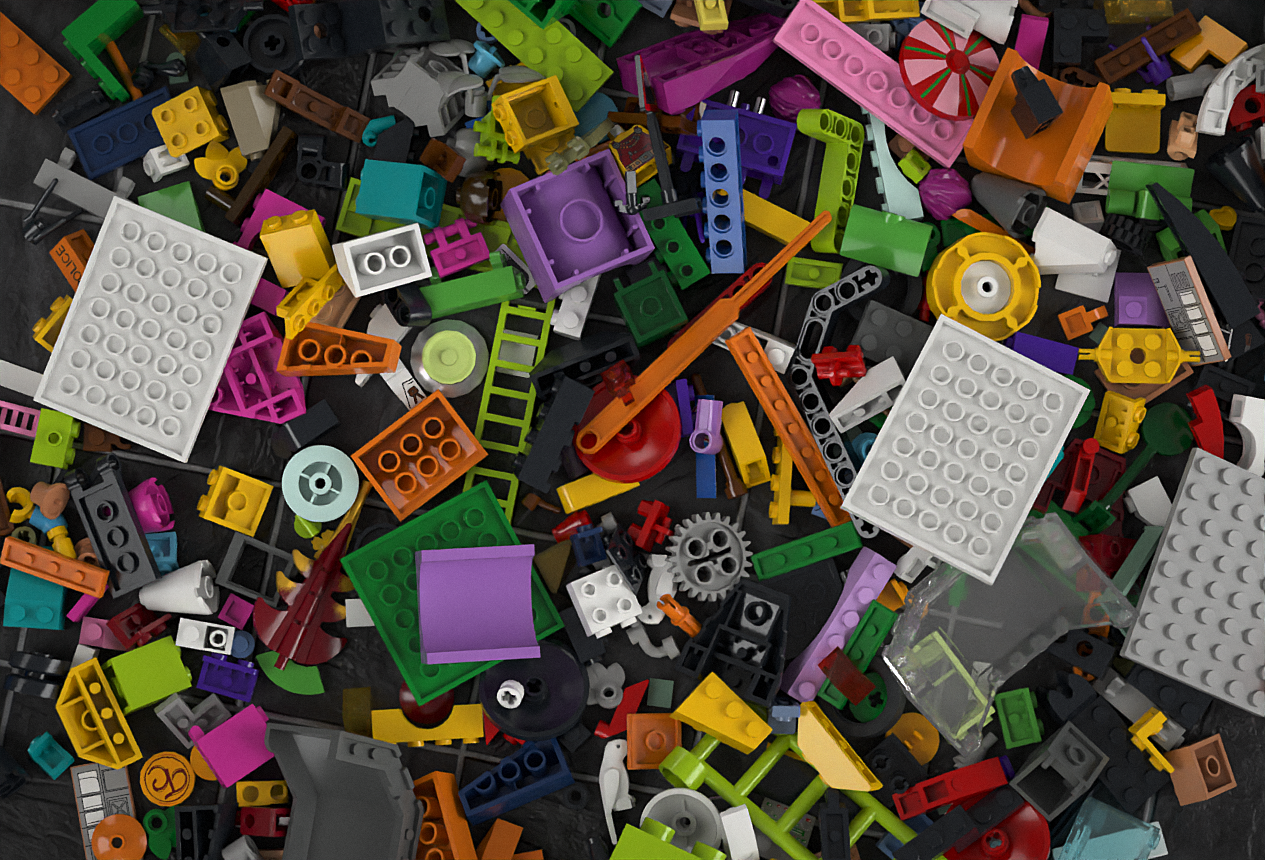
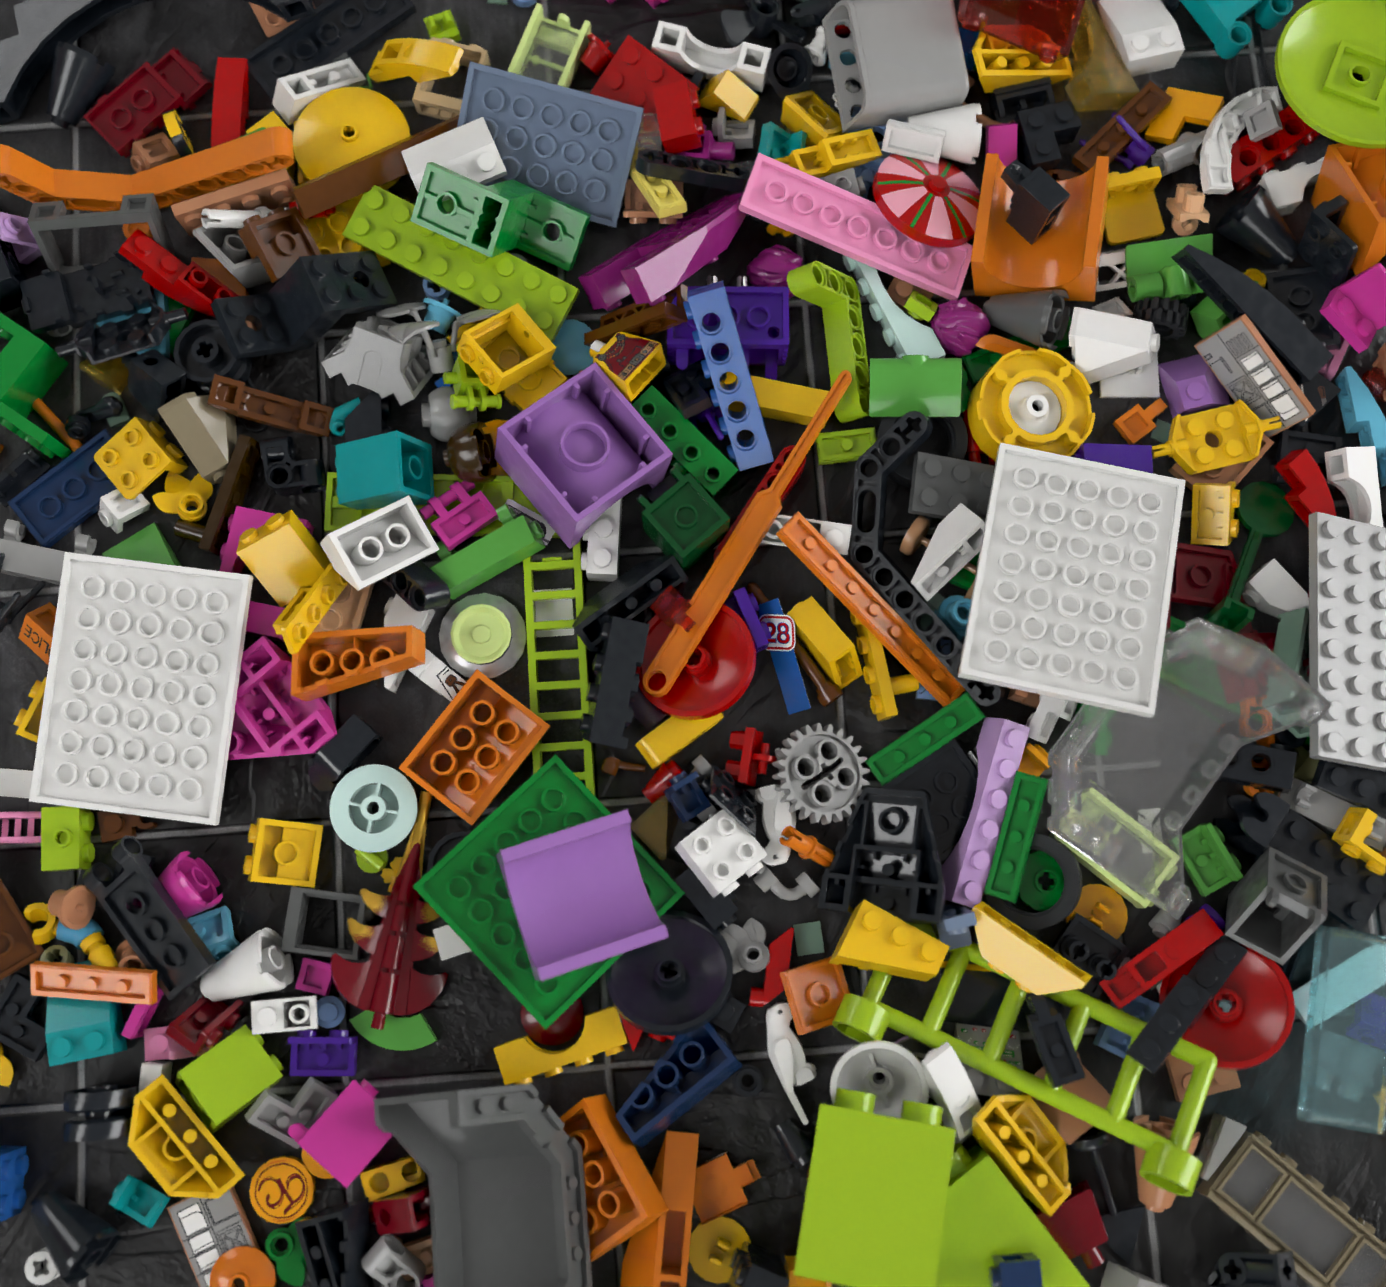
camera: 20 degrees left, 5 degrees down
(357, 711) = (478, 1055): clear yellow slope -> none
(443, 159) = (419, 423): reddish brown bracket -> none
(515, 689) = (648, 979): white bush -> none
(578, 147) = (565, 361): olive tile -> none
(631, 206) = (636, 414): black piece -> none
(671, 204) = (678, 401): black piece -> none
(707, 423) = (782, 628): medium lavender piece -> none
(839, 365) = (905, 527): red hips -> none
(846, 676) = (1013, 863): clear red slope -> none
(1080, 475) = (1194, 577): red piece -> none

